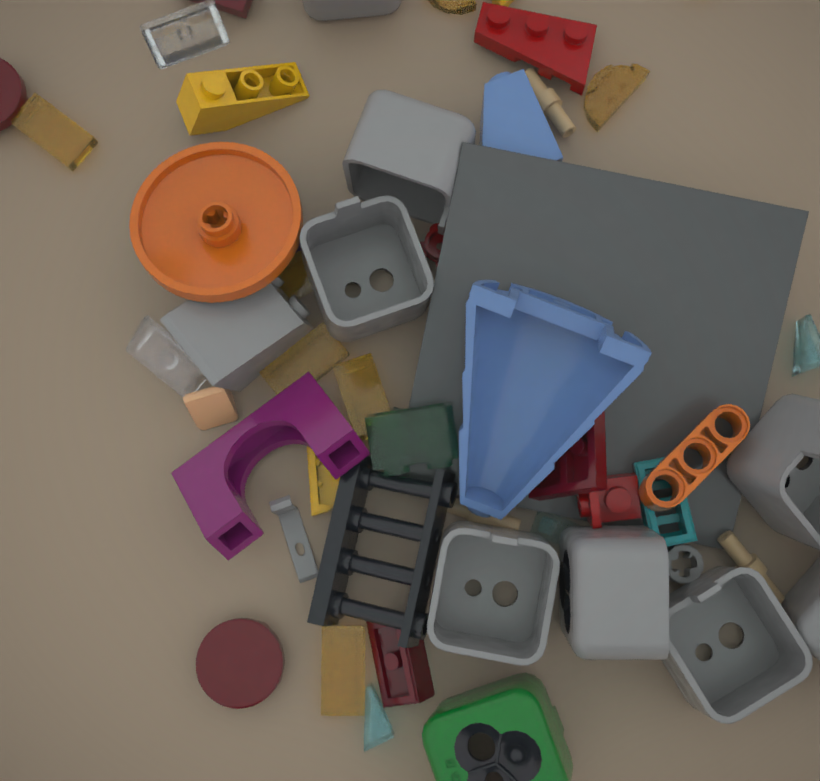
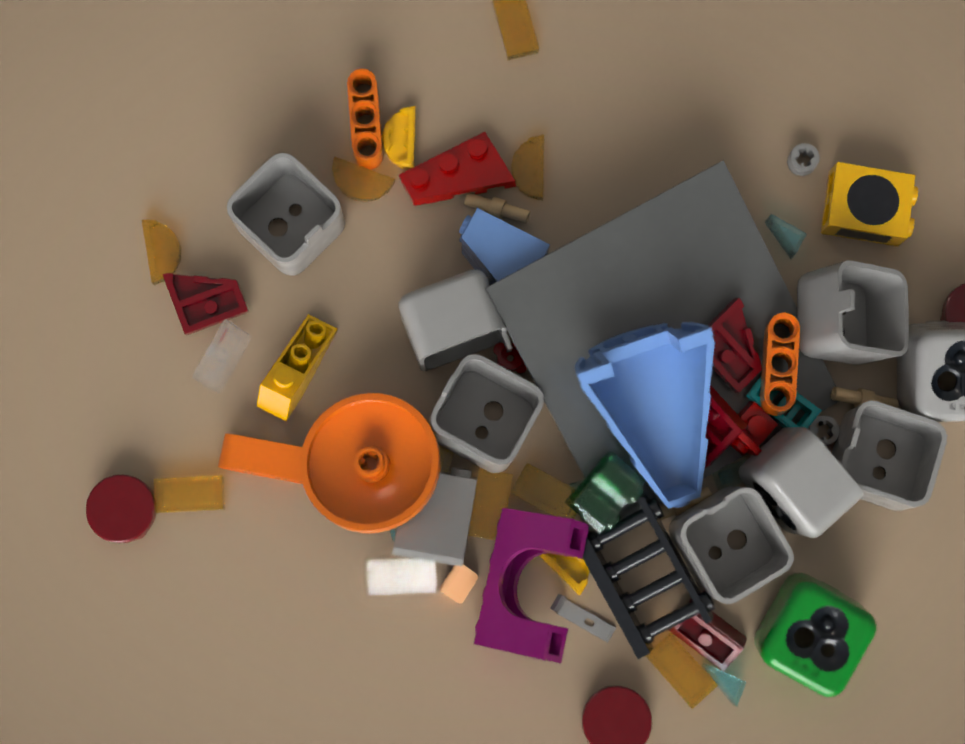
camera: 50 degrees left, 0 degrees up
(133, 140) = (261, 458): none -> orange beam
(658, 402) = (734, 349): none -> dark red wing

